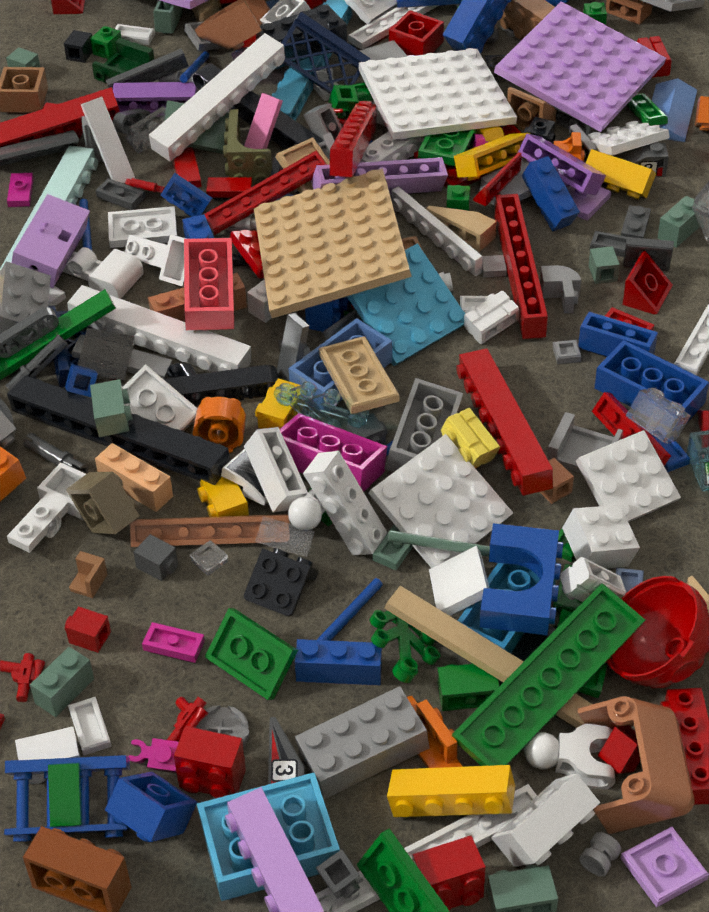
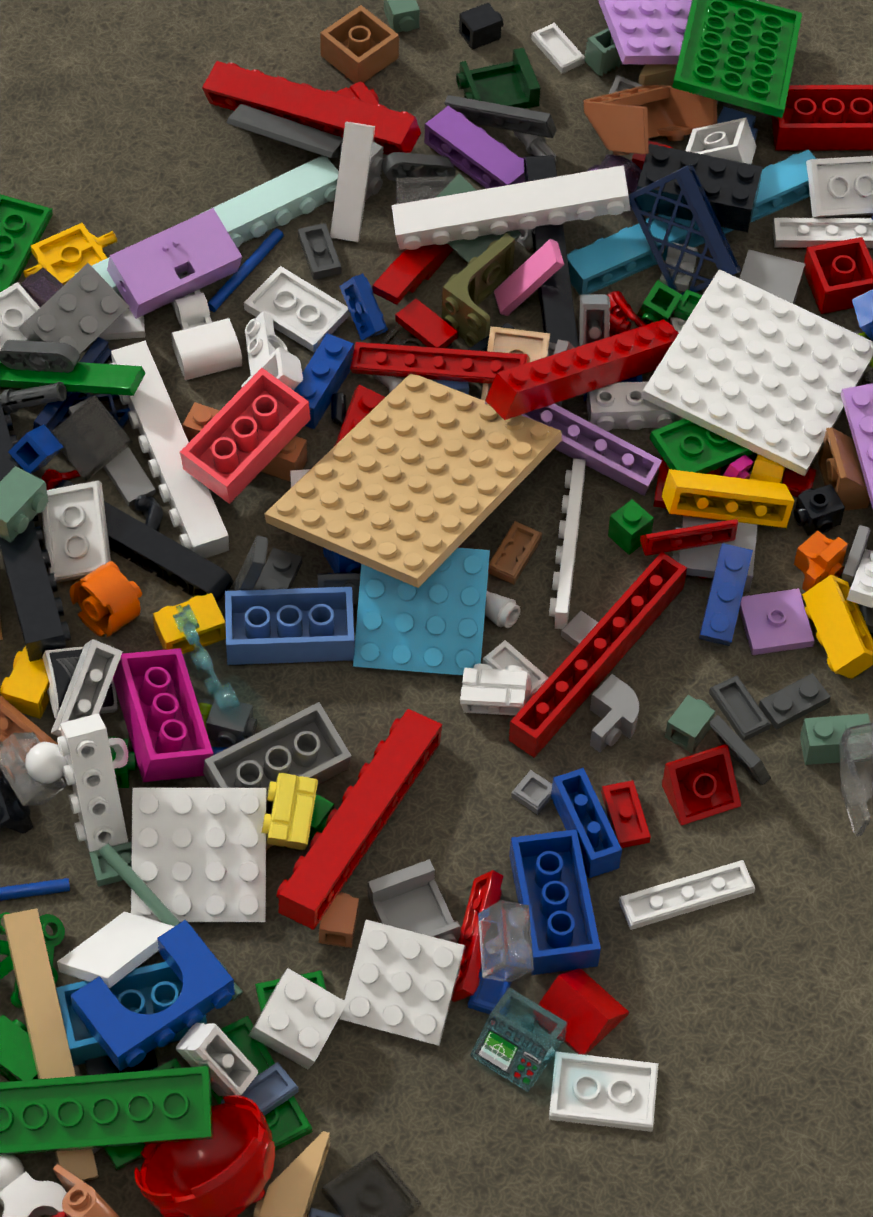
camera: 40 degrees right, 10 degrees up
(20, 189) = (237, 171): dark pink plate -> none
(104, 42) = (513, 36): green brick -> none
(145, 185) = (349, 260): red piece -> none
(194, 67) = (556, 143): blue bar -> none
(358, 375) = (270, 653): tan tile -> none
(470, 226) = (606, 560): tan slope -> none
(571, 169) = (778, 568): medium lavender brick -> none

